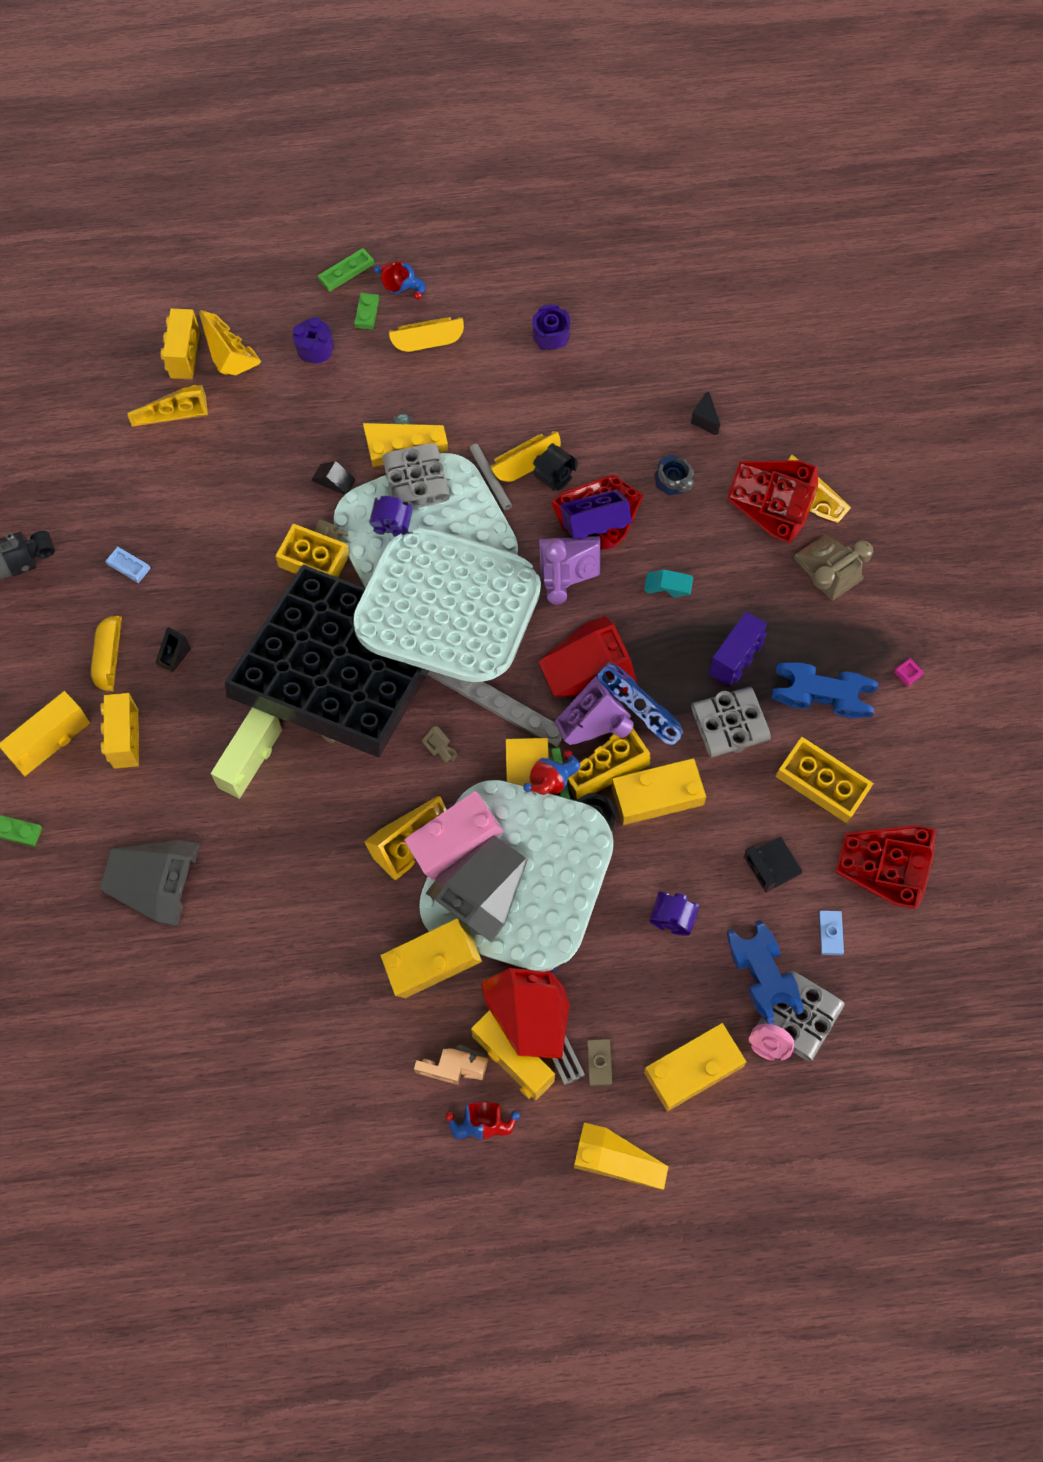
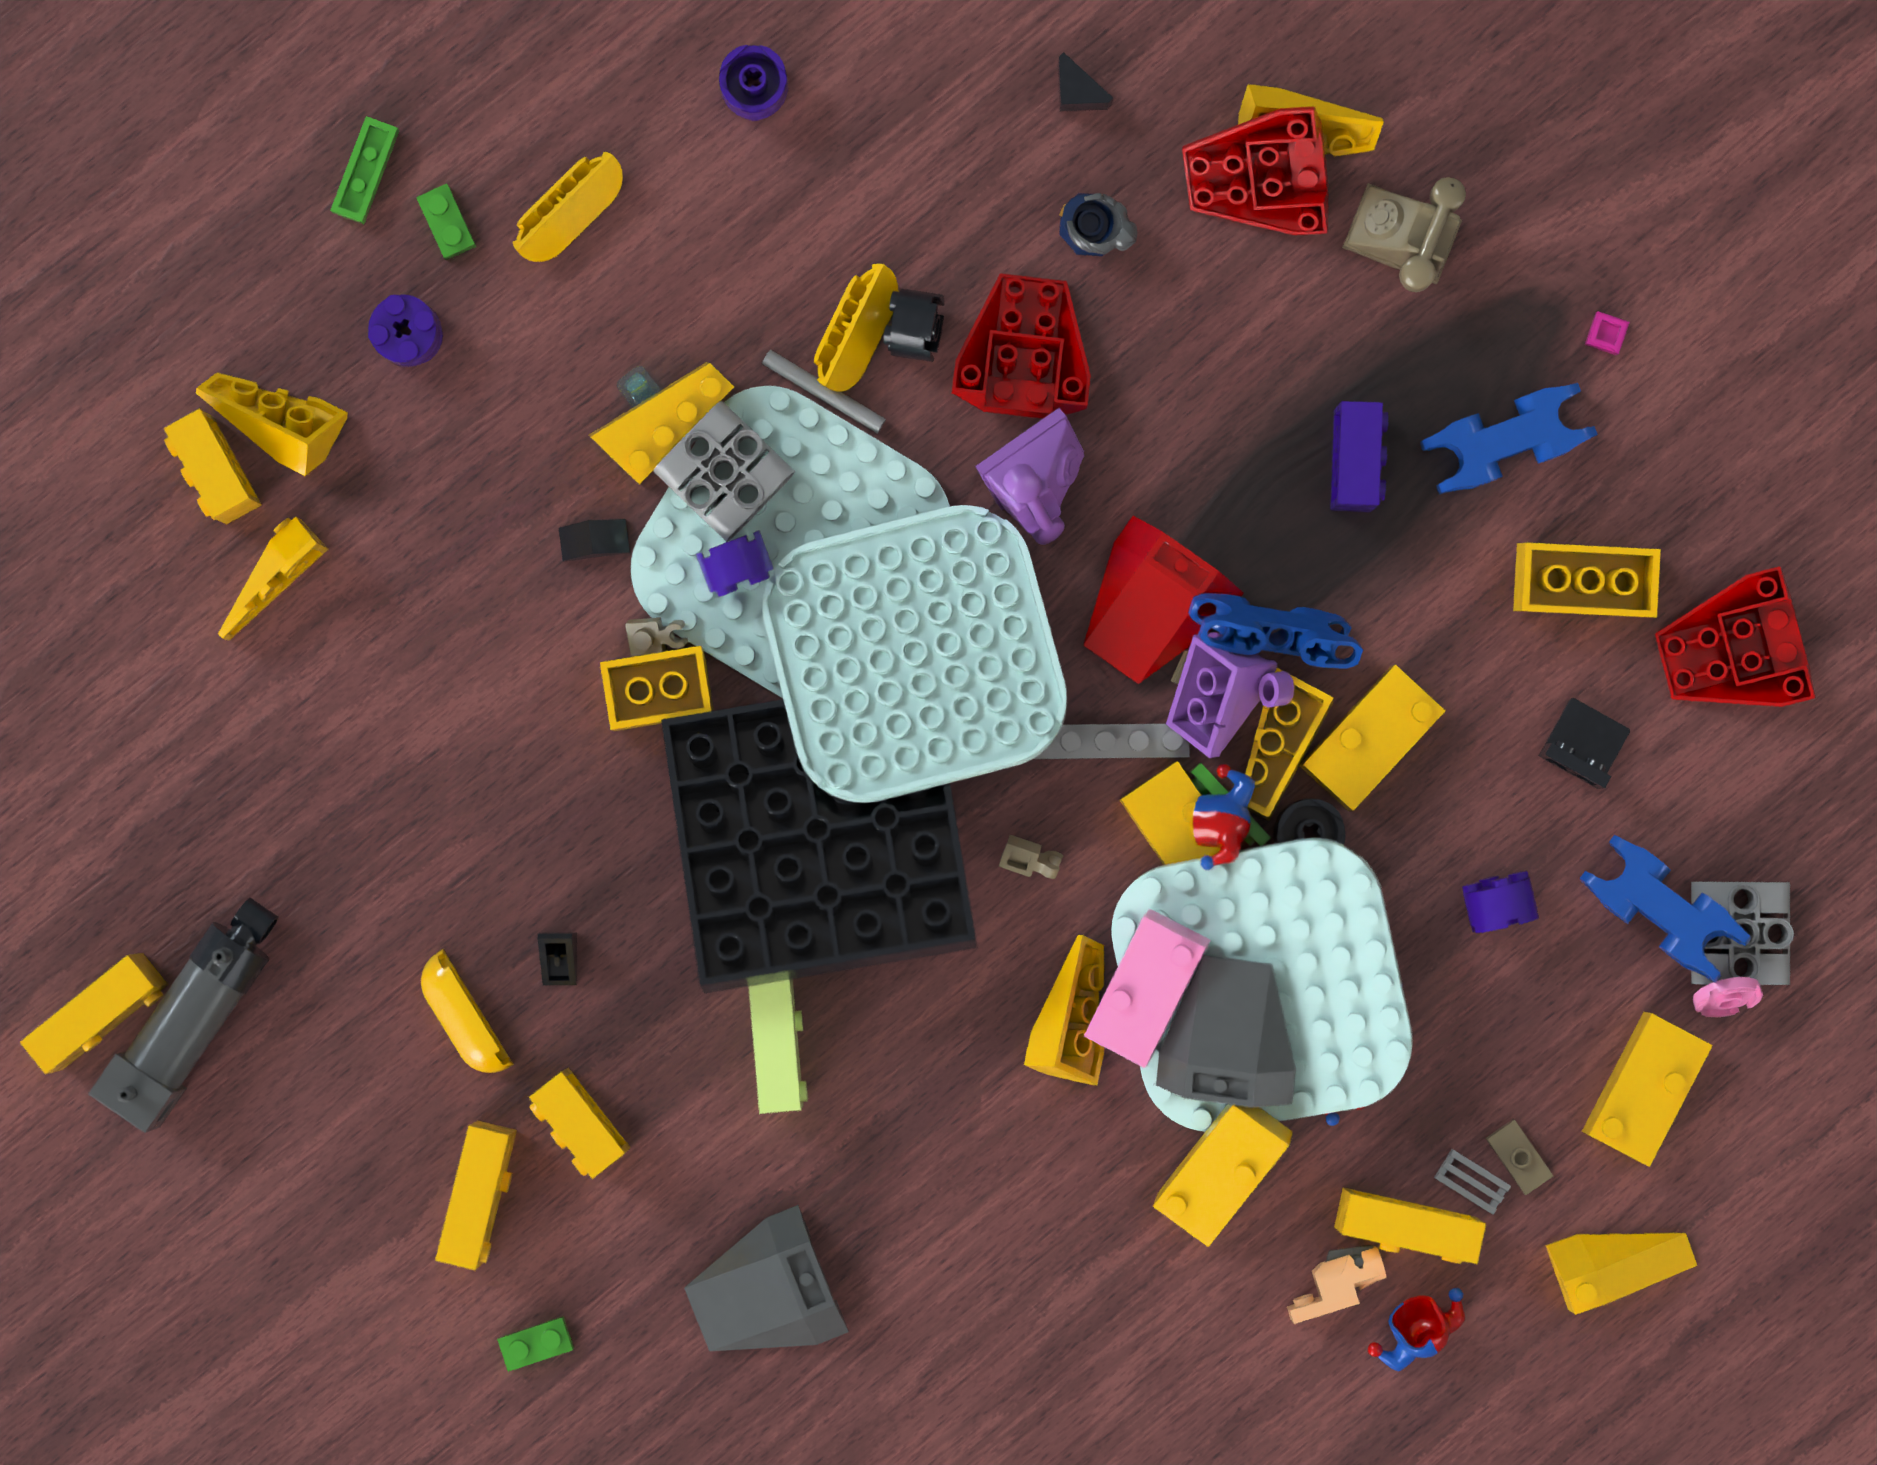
camera: 35 degrees left, 20 degrees up
(128, 564) = (394, 866): light blue plate -> none
(399, 277) = (461, 135): piece -> none
(529, 1010) = (1401, 1163): red wedge -> none
(596, 514) = (1033, 377): dark purple brick -> none
(672, 582) = (1192, 407): teal slope -> none
(713, 713) = (1409, 527): light grey connector -> none
(831, 933) = (1715, 790): light blue plate -> none

